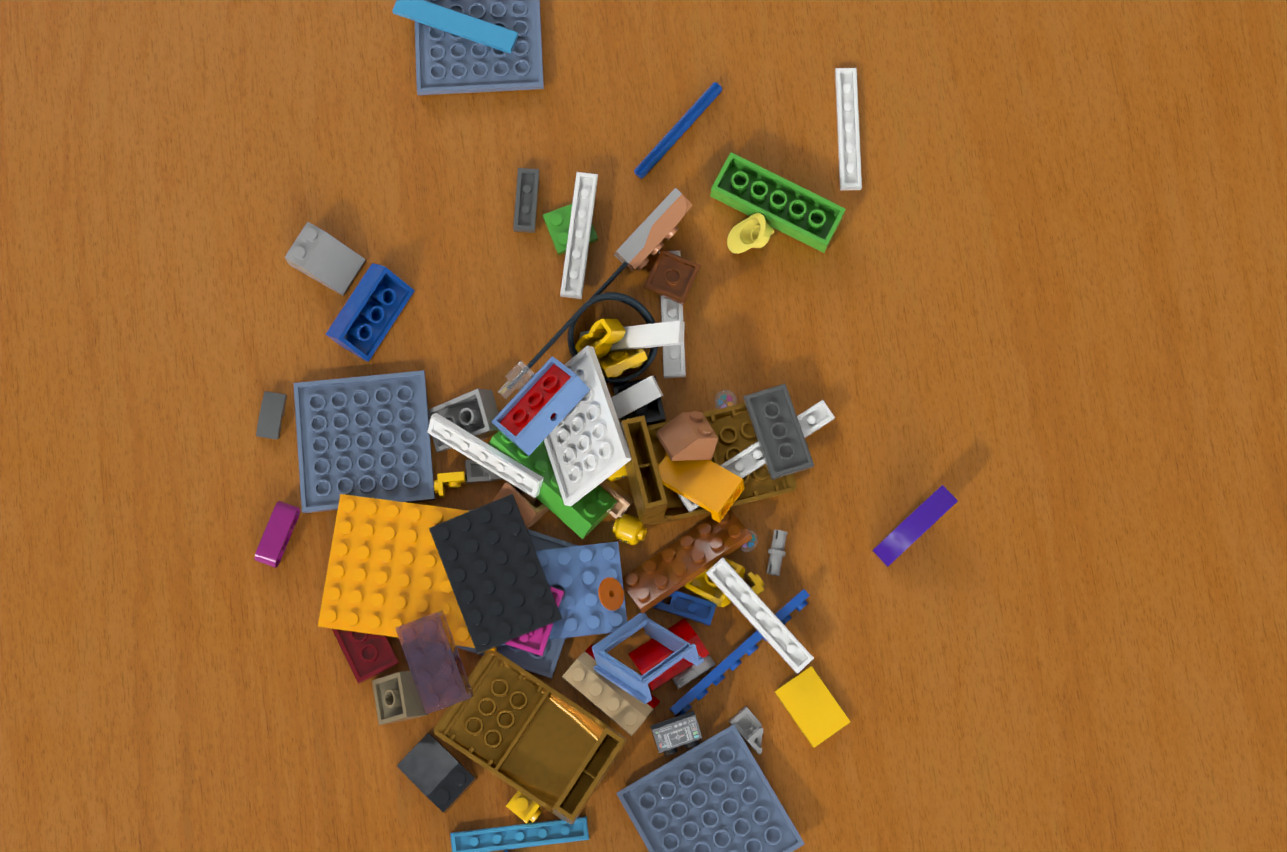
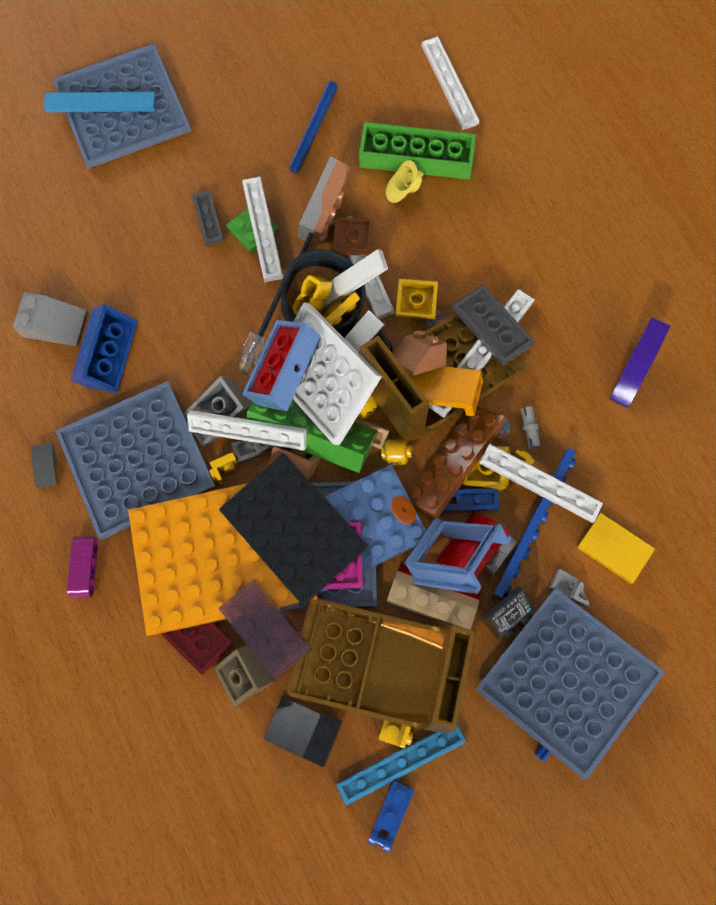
camera: 15 degrees left, 5 degrees down
(712, 373) = (416, 298): none -> yellow slope

